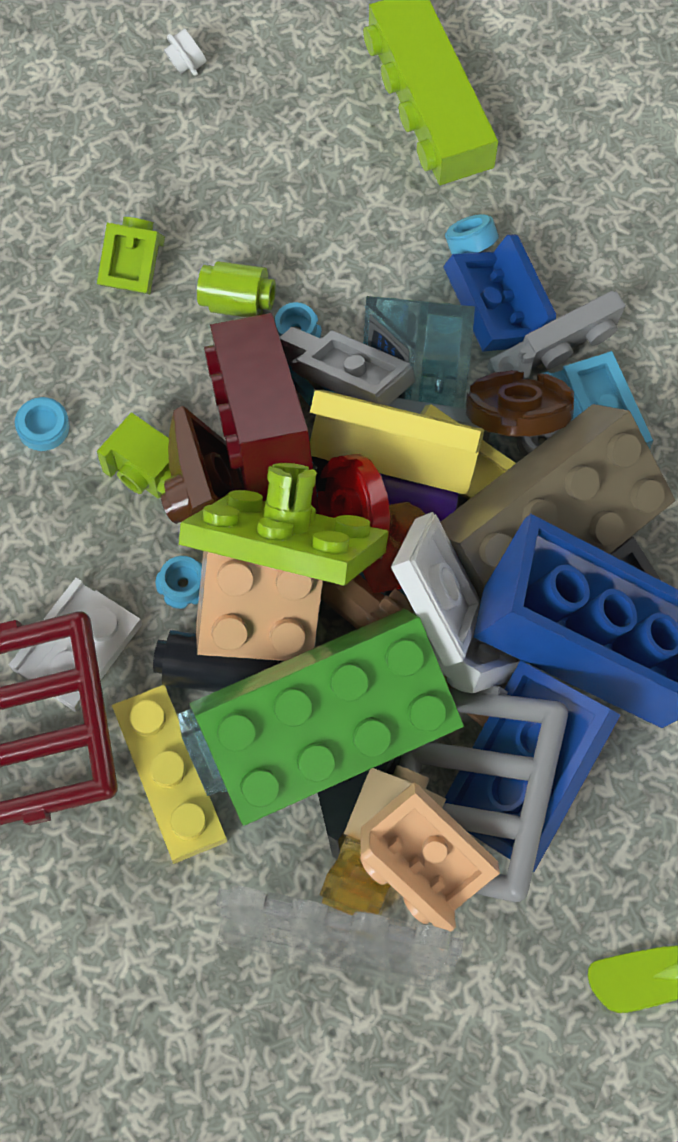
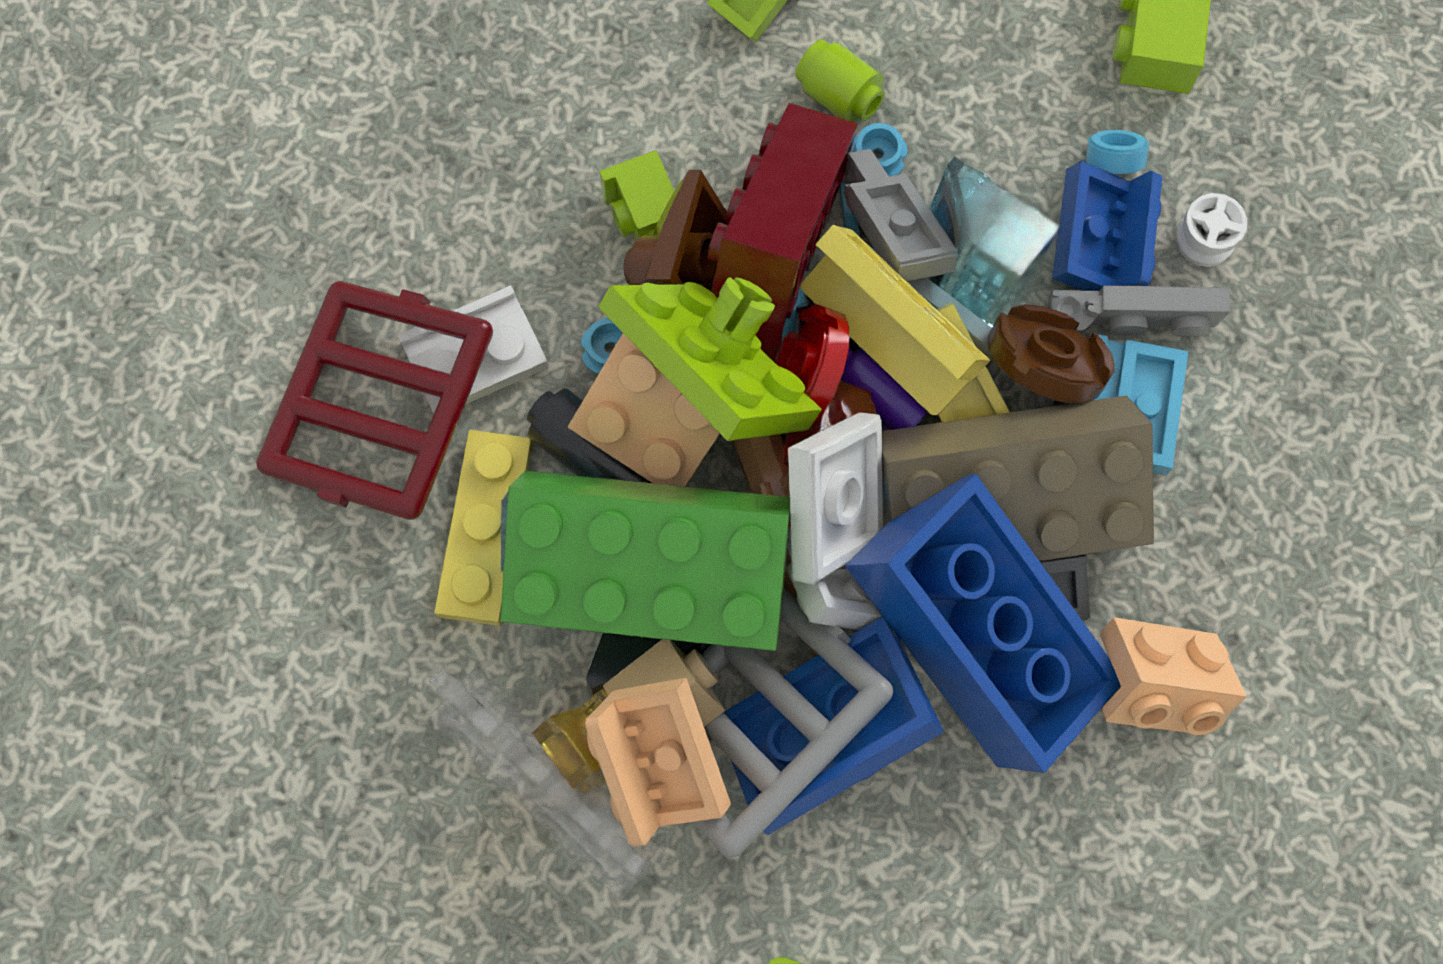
camera: 30 degrees right, 5 degrees up
(42, 424) = (572, 116): medium azure tile -> none
(577, 244) = (1223, 222): none -> white wheel

